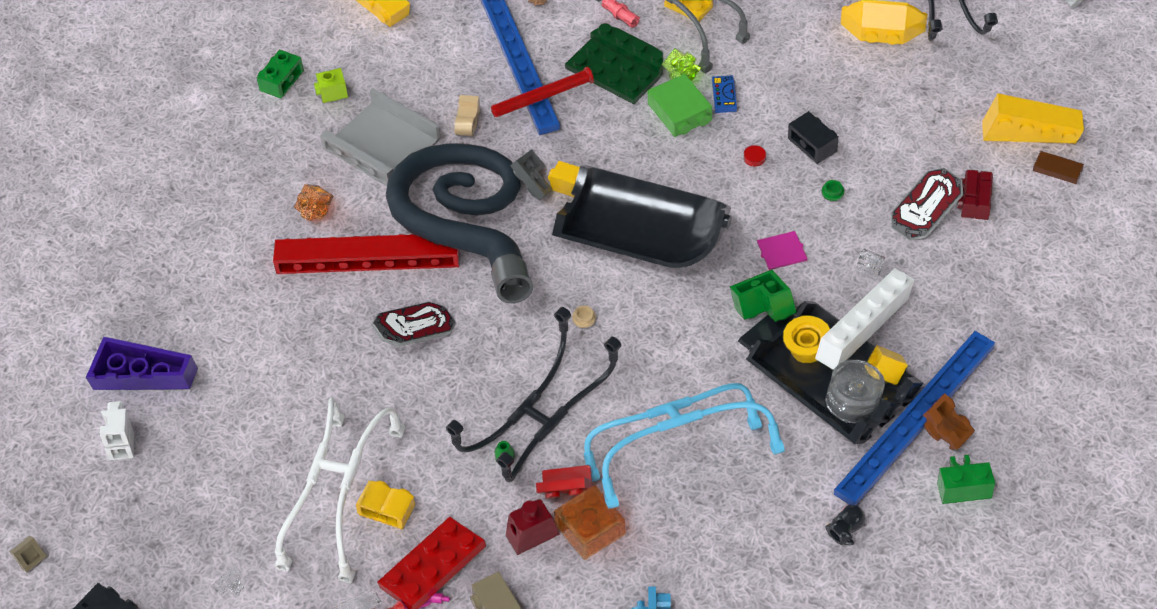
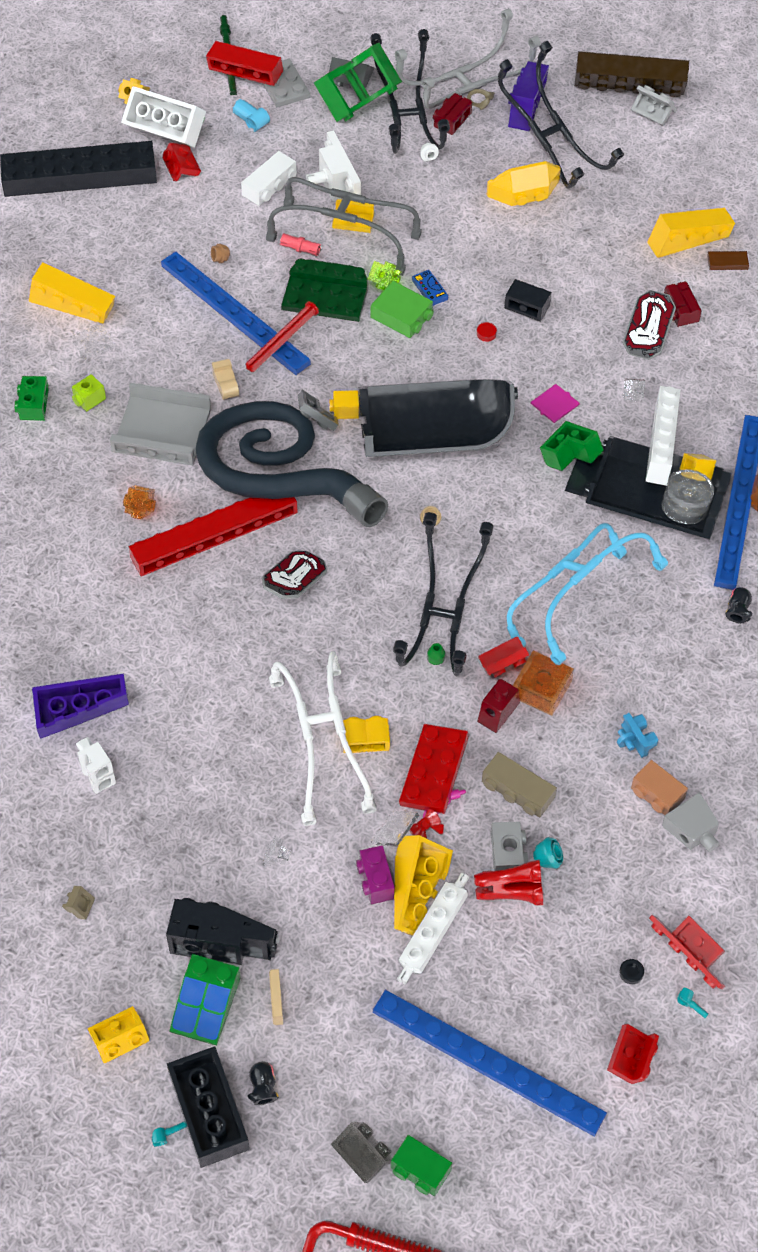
camera: 30 degrees left, 5 degrees up
(804, 336) = (625, 467): yellow piece -> none
(832, 190) = (567, 339): green plate -> none

